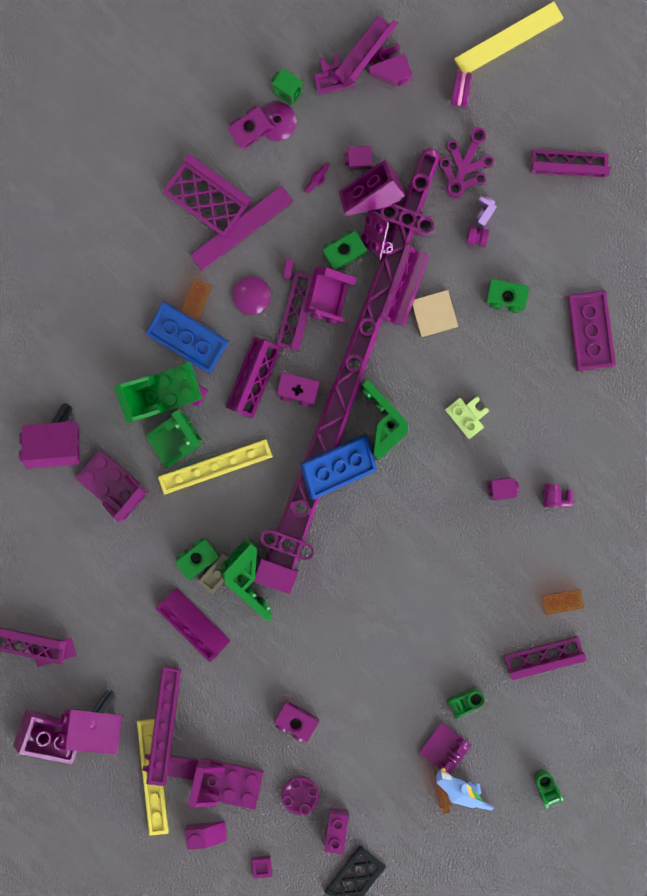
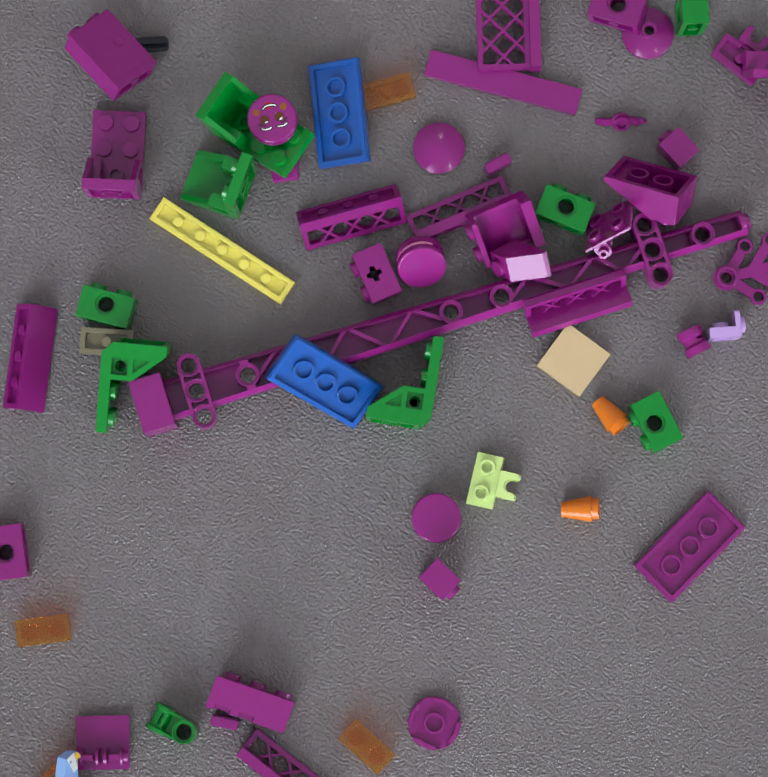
camera: 50 degrees right, 5 degrees down
(163, 380) = (272, 119): none -> magenta head
(311, 357) = (420, 261): none -> magenta head
(356, 300) = (520, 262): none -> slope
(356, 735) = (43, 630): none -> clear orange plate
(464, 462) = (436, 517): none -> magenta head
(483, 317) = (610, 415): none -> orange cone
(487, 671) = (225, 721): none -> magenta tile
(488, 648) = (251, 701): none -> magenta wedge
(523, 375) = (581, 509): none -> orange cone
(553, 496) = (473, 645): magenta piece -> none
(578, 553) = (434, 723): none -> magenta tile

